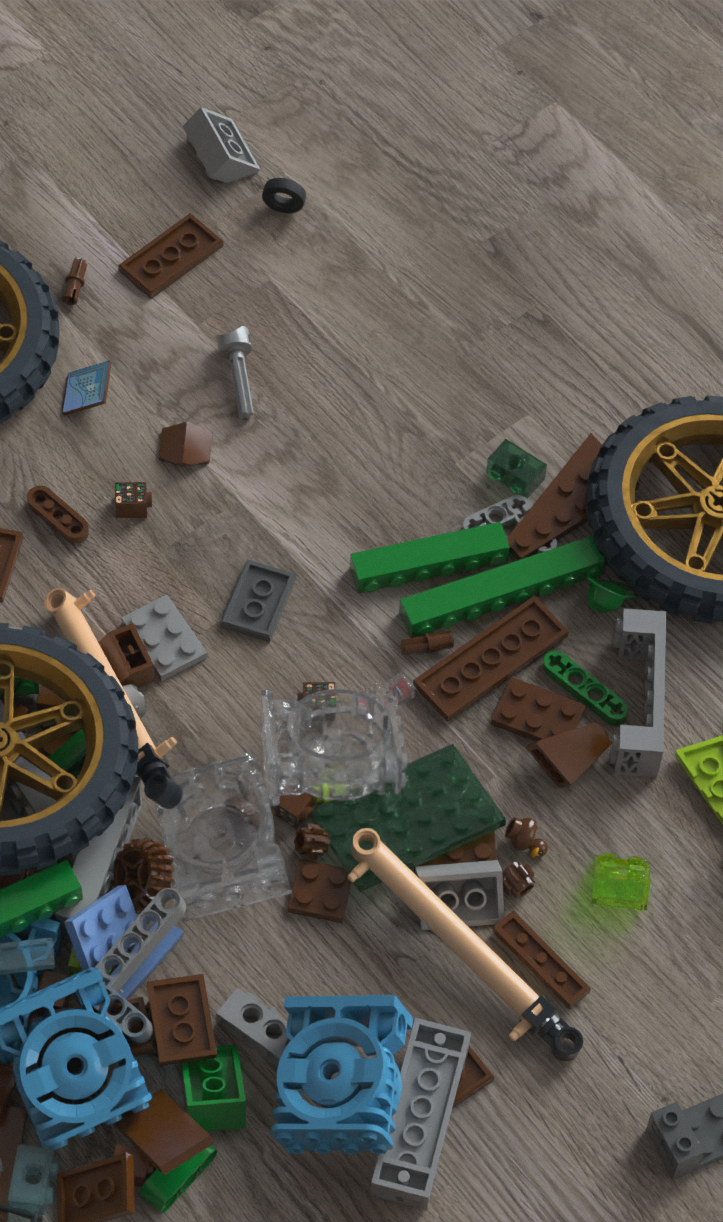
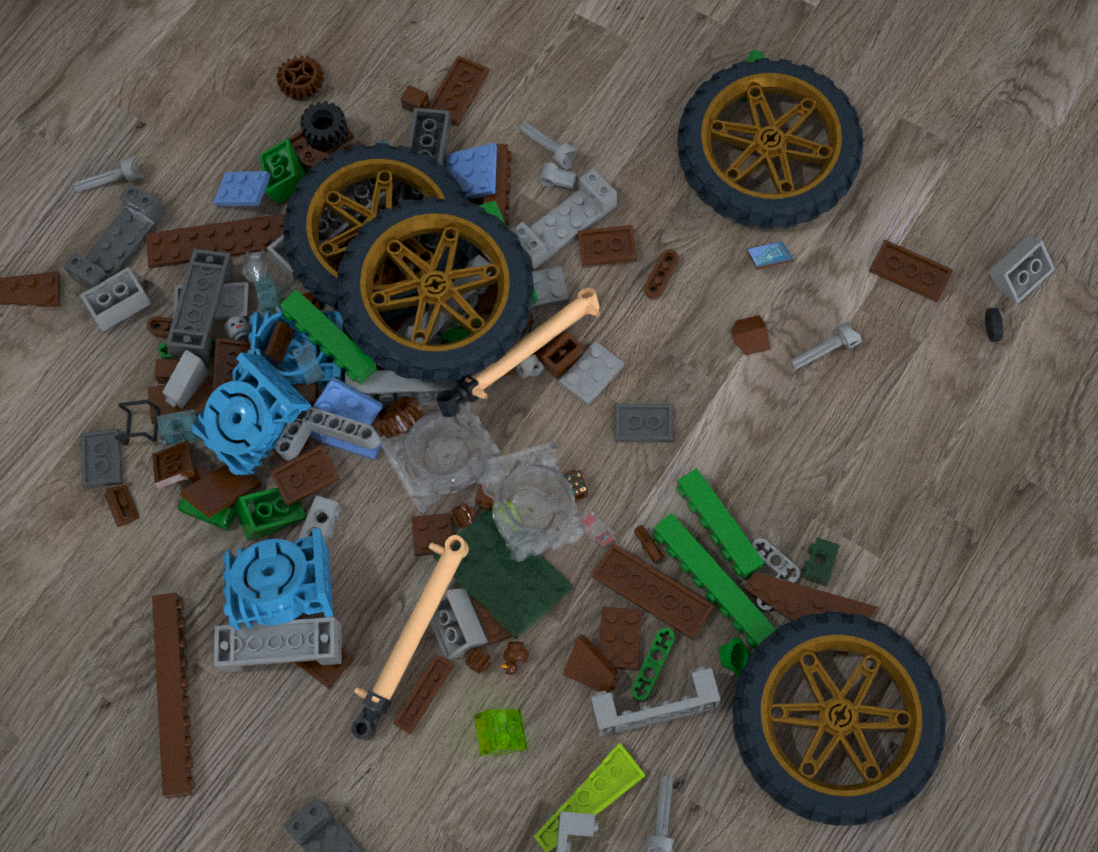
camera: 80 degrees right, 10 degrees up
(75, 281) = (859, 216): reddish brown axle -> none
(132, 499) = (690, 314): brick -> none

